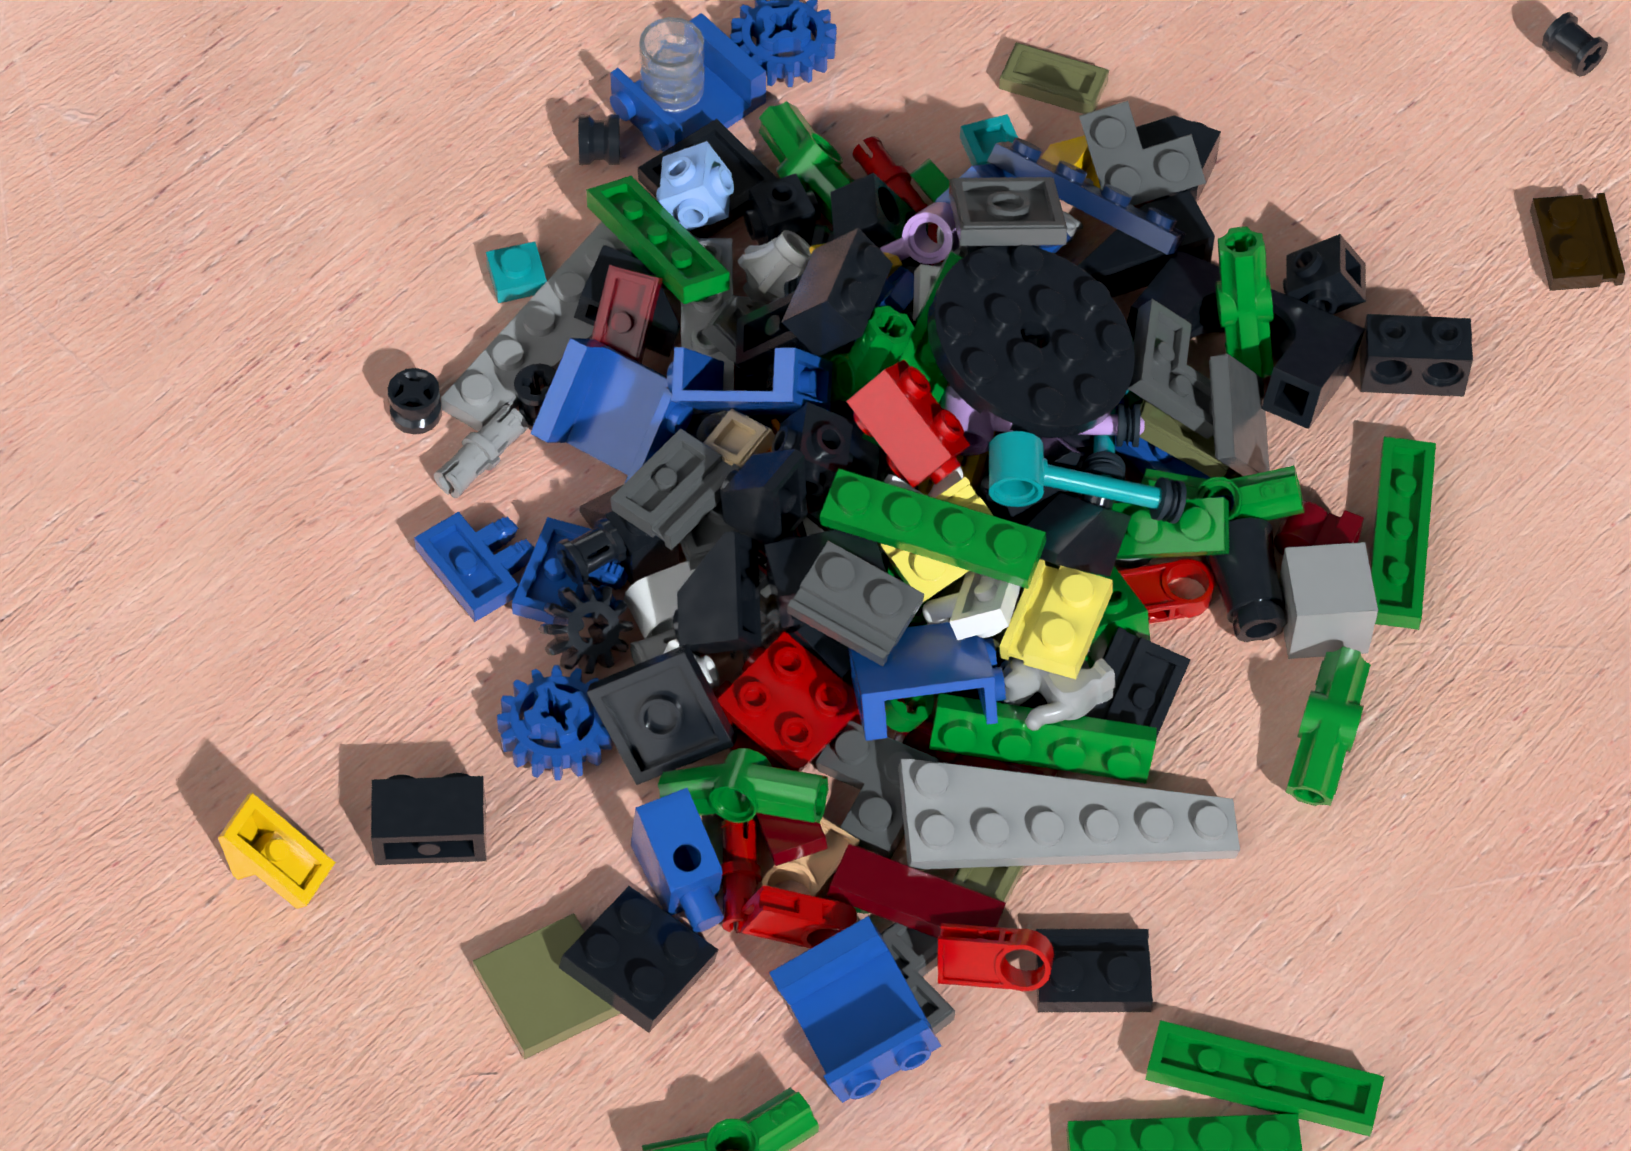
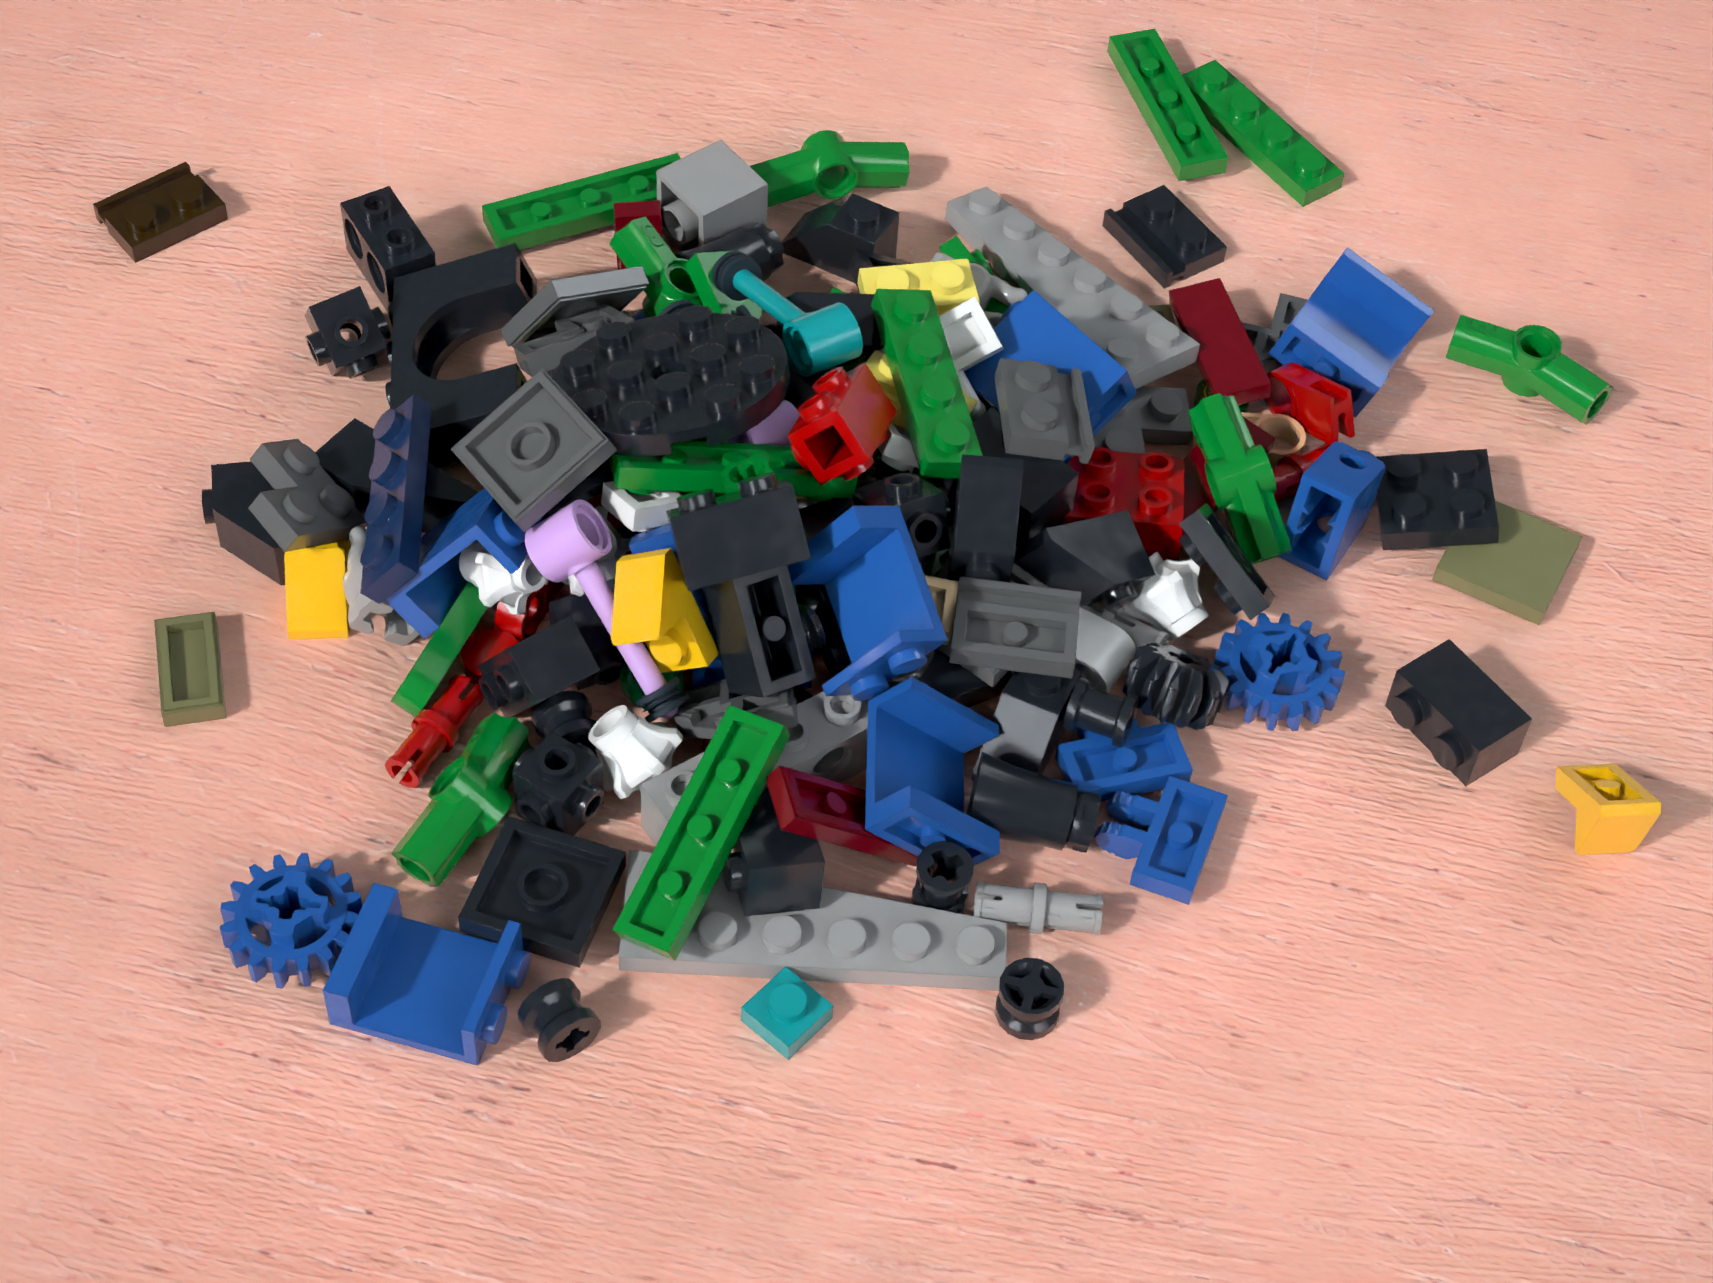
camera: 125 degrees left, 5 degrees down
(559, 478) = (1032, 806): none -> black plant
(672, 63) = (417, 983): clear wheel -> none
(695, 186) = (585, 856): light blue brick -> none
(977, 957) = (1230, 268): red piece -> none
(981, 137) = (327, 668): teal plate -> none
(1233, 694) = (833, 232): none -> black slope
(1245, 299) = (438, 335): green piece -> none

